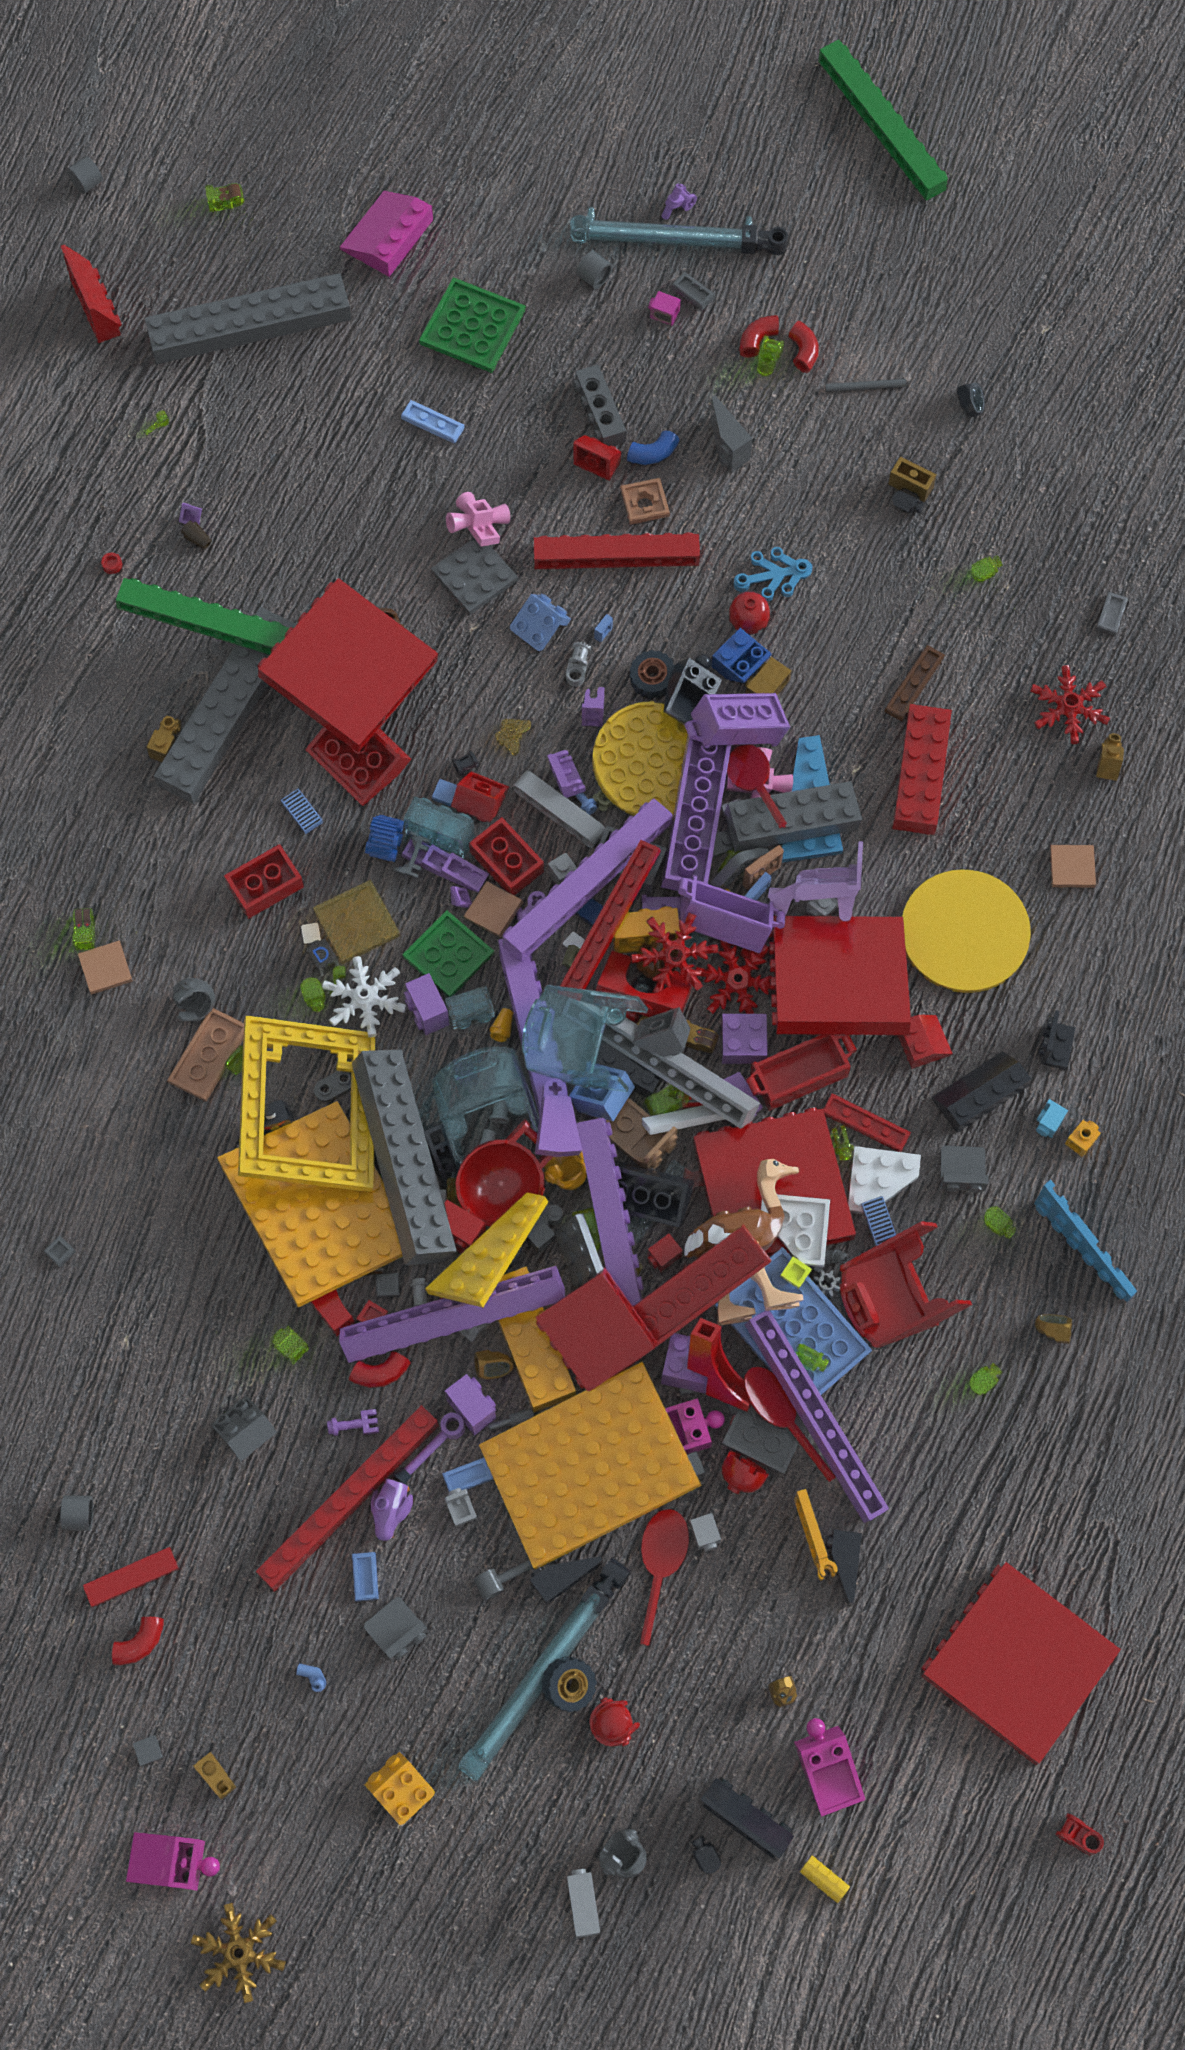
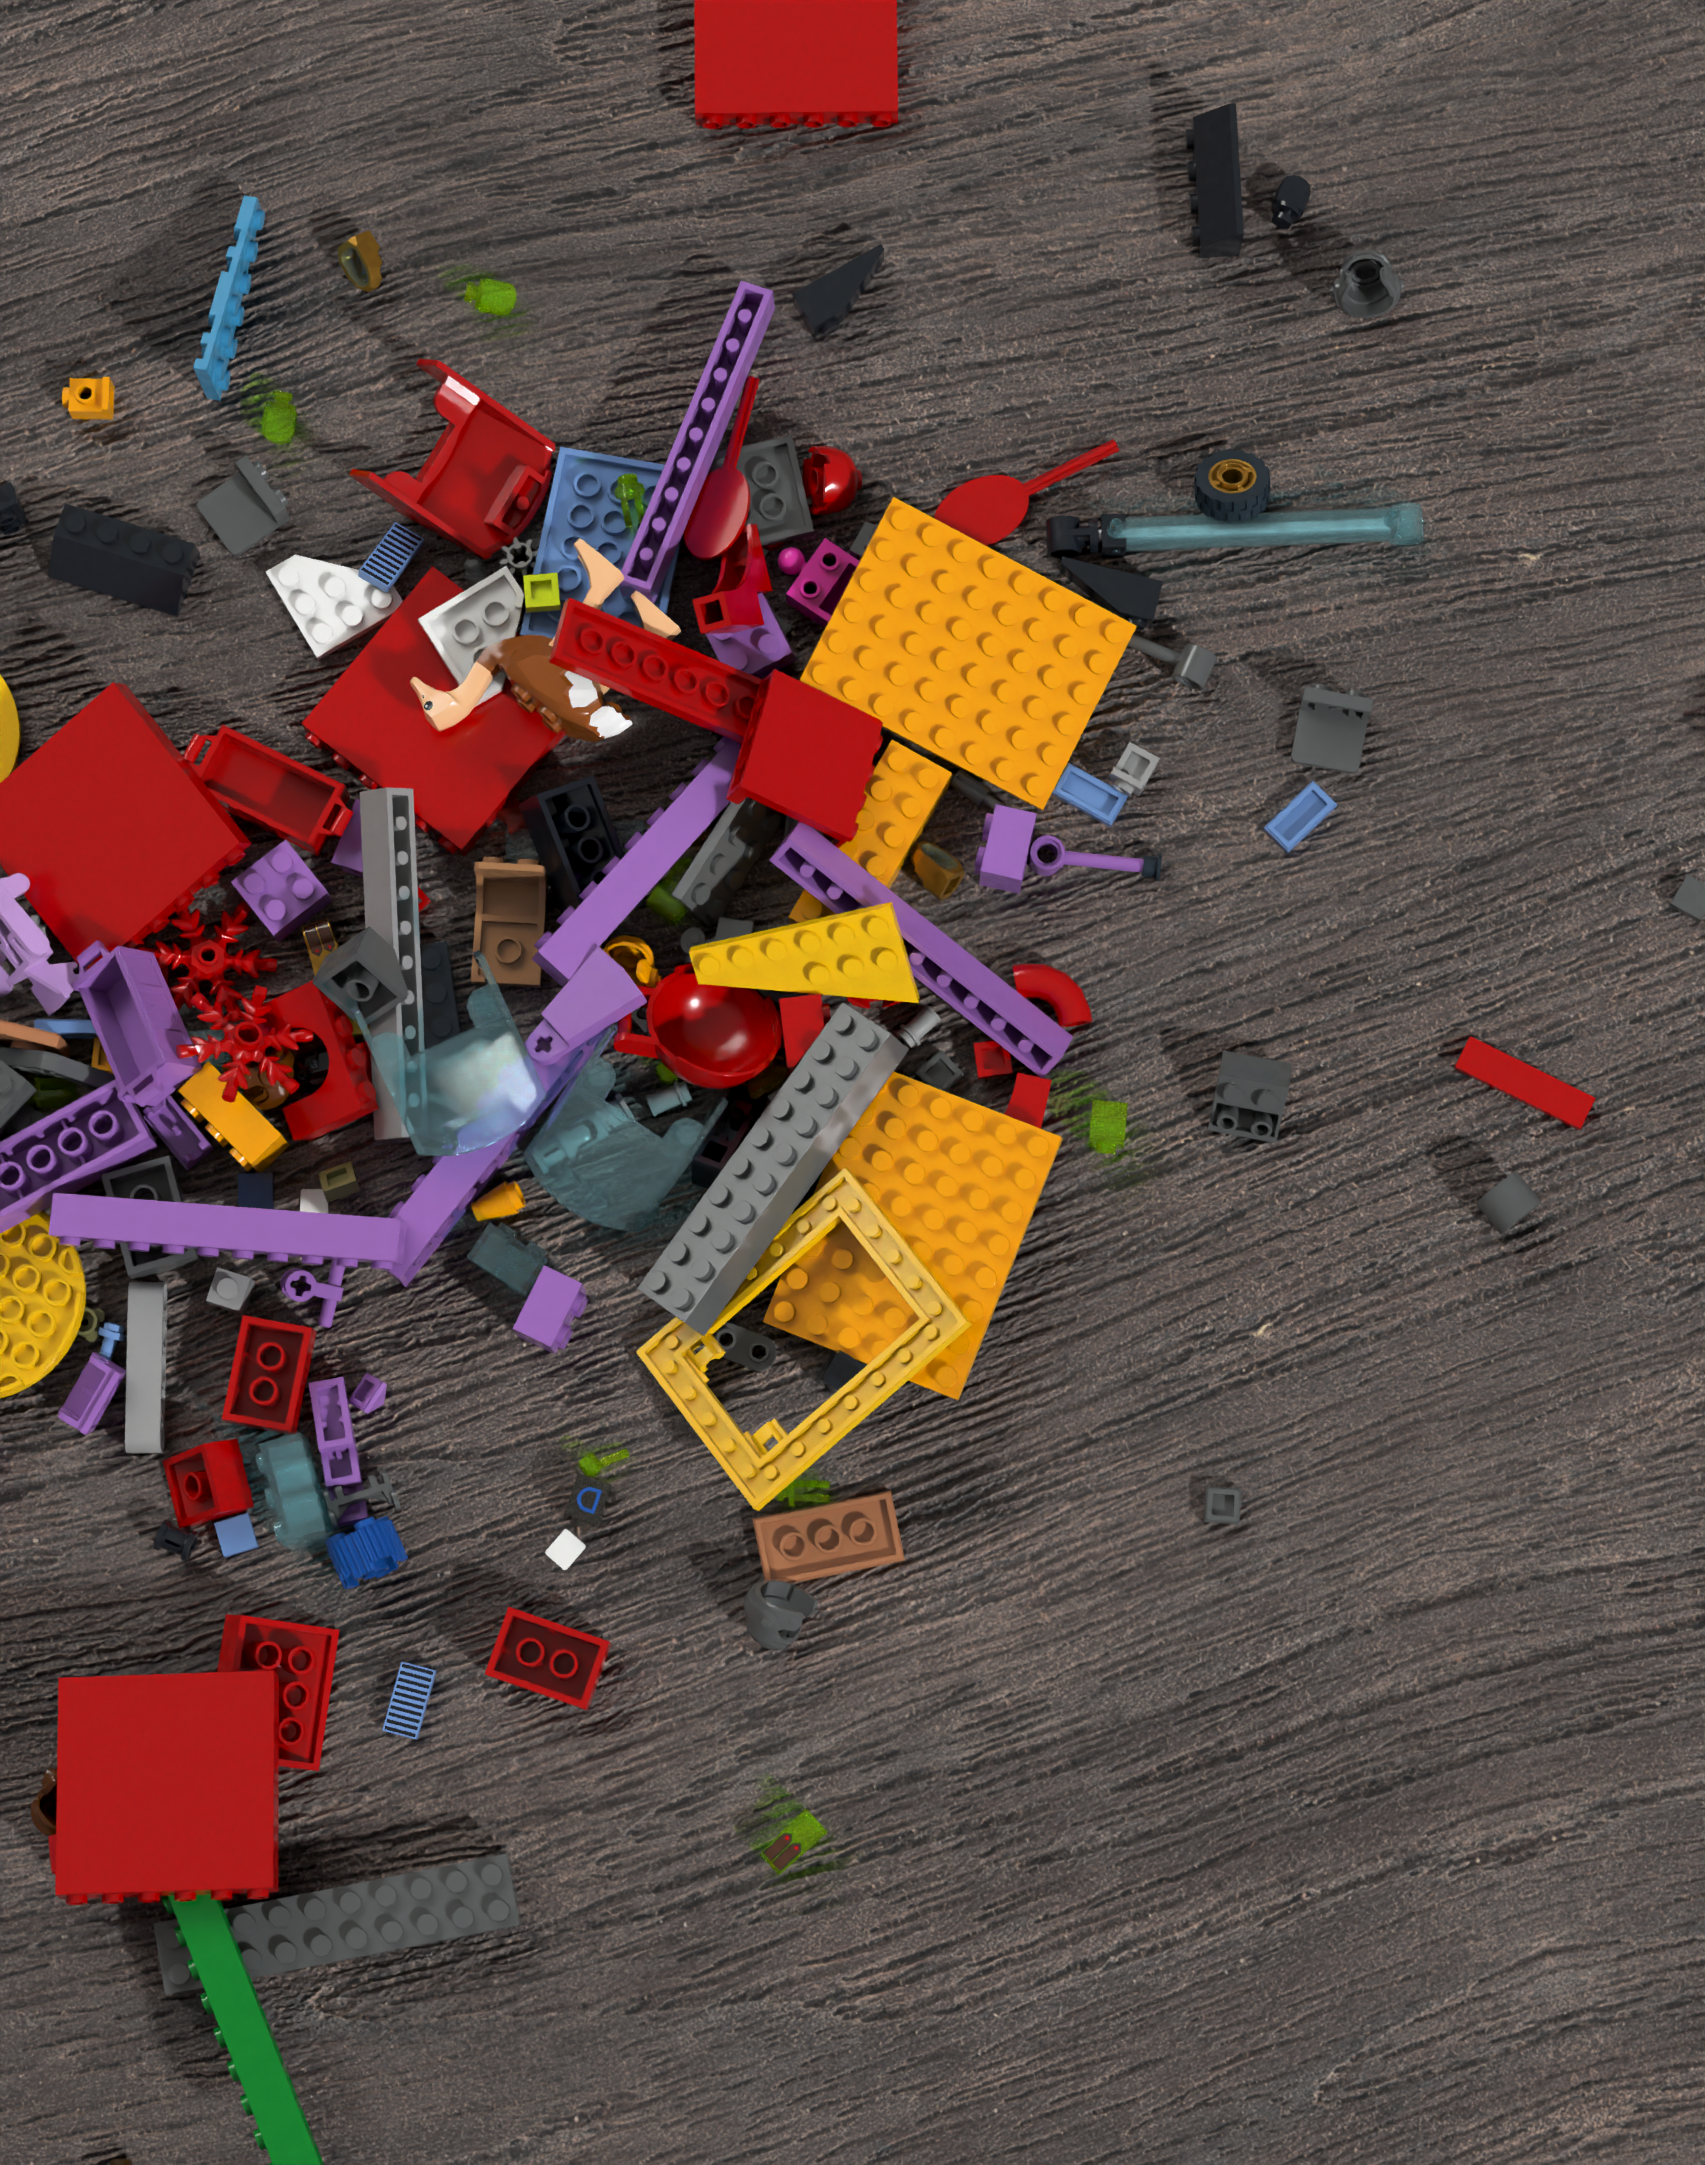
camera: 125 degrees left, 10 degrees up
(105, 967) = (822, 1770): nougat tile -> none
(141, 1644) = (1588, 1002): red cylinder -> none
(163, 739) = (458, 1960): pearl gold brick -> none
(215, 1775) = (1656, 800): pearl gold leg -> none
(313, 994) = (646, 1472): clear neon green arm -> none
(314, 1675) = (1456, 781): medium blue arm -> none
(334, 1426) = (1160, 993): medium lavender hinge -> none
(347, 1498) = (1230, 905): red brick -> none
(356, 921) = (506, 1499): clear yellow plate -> none
(364, 996) = (613, 1404): white piece -> none
(390, 1508) = (1201, 848): medium lavender animal -> none
(399, 1788) = (1498, 587): light orange bracket -> none
(448, 953) = (457, 1347): green plate -> none
(493, 909) = (352, 1338): nougat tile -> none
(511, 741) = (95, 1510): clear yellow animal -> none
(583, 1903) = (1454, 283): light grey window -> none
(600, 1101) = (513, 986): medium blue brick -> none
(611, 916) = (263, 1156): red plate -> none
(612, 1723) = (1234, 409): red helmet -> none
(664, 1253) = (635, 776): red brick -> none
(665, 1101) = (445, 922): clear neon green piece -> none
(679, 1119) = (457, 886): white tile -> none
(705, 1532) = (933, 472): light grey brick -> none
(783, 1691) = (1042, 252): pearl gold rock -> none
(813, 1535) = (839, 345): light orange tile -> none
(824, 1879) = (1209, 58): yellow axle -> none
(829, 1768) = (1085, 141): dark pink slope -> none
(844, 1150) = (333, 663): clear neon green arm -> none
(866, 1123) = (273, 668): red tile -> none
(925, 1041) = (109, 662): red slope -> none
(1050, 1118) = (96, 451): medium azure brick -> none

